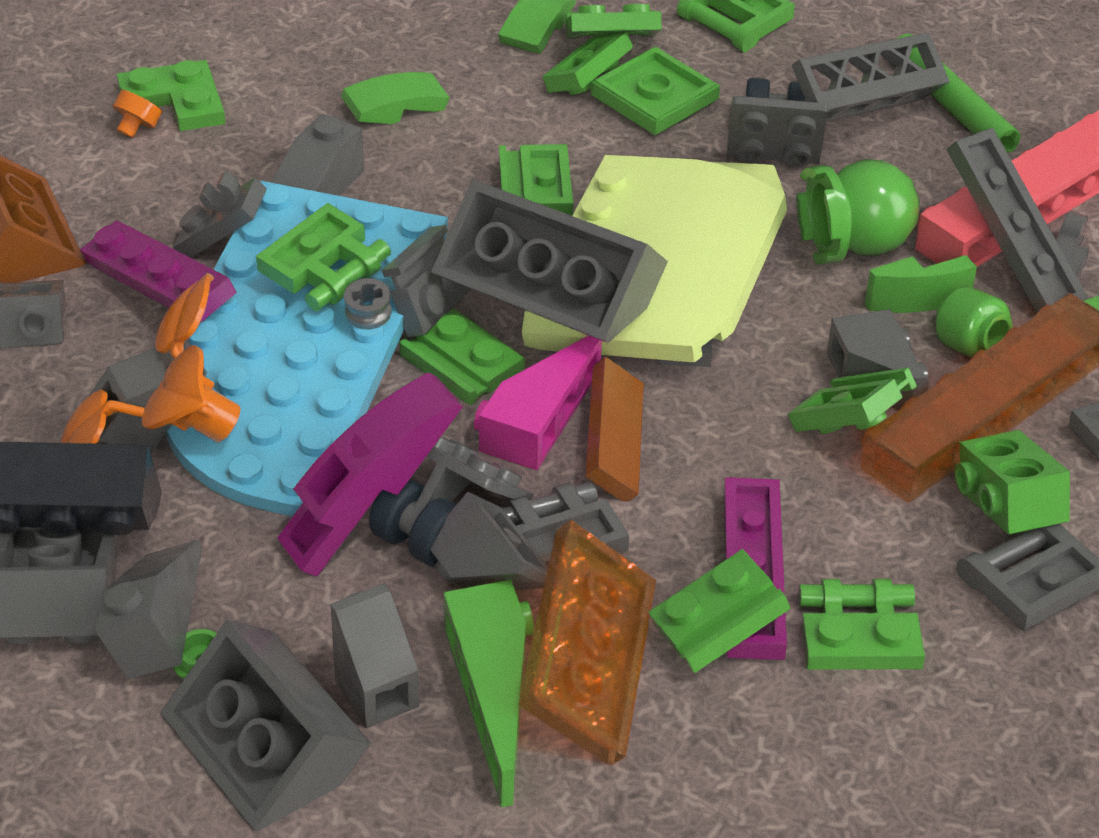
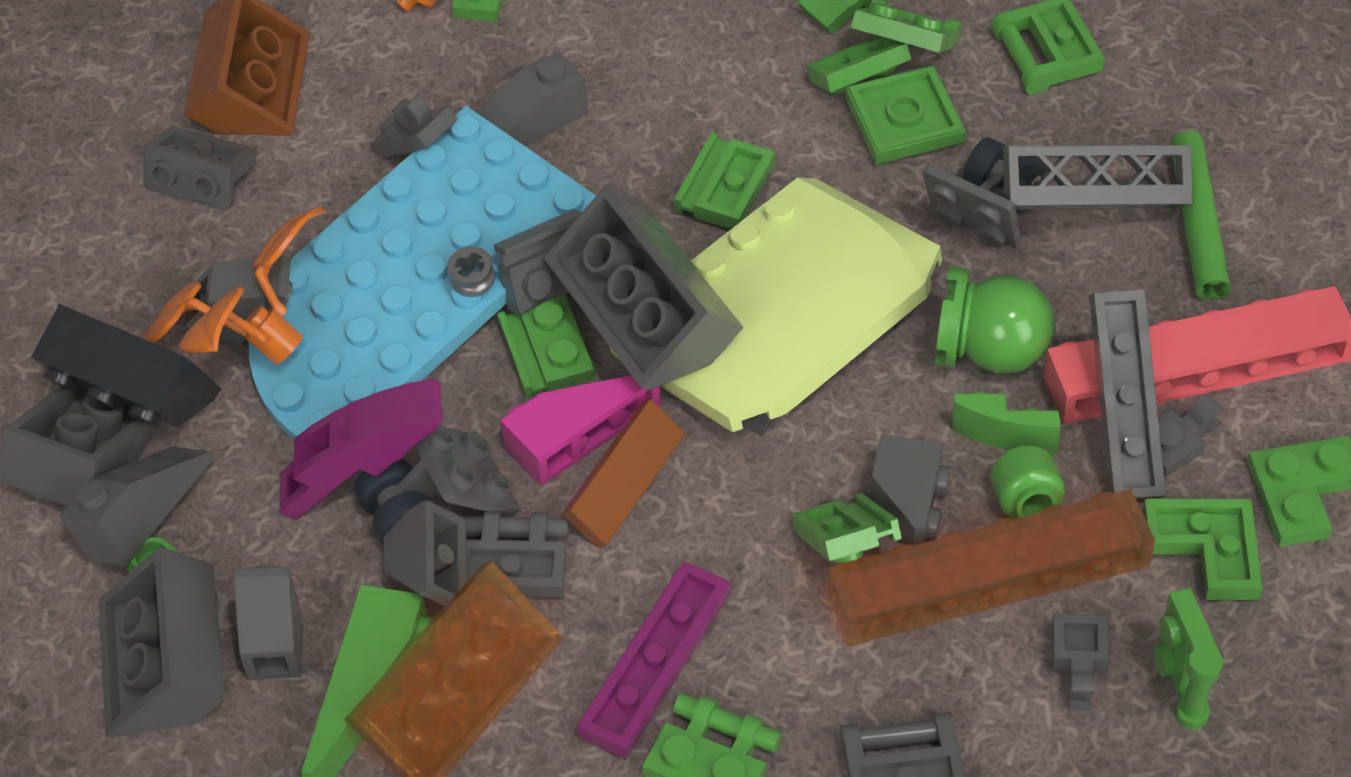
camera: 30 degrees right, 10 degrees up
(152, 266) = (329, 170): magenta plate -> none
(313, 247) = (456, 198): bright green plate -> none
(386, 96) = (646, 41): bright green slope -> none
(719, 610) = (584, 692): bright green plate -> none
(1014, 481) = (932, 669): bright green brick -> none

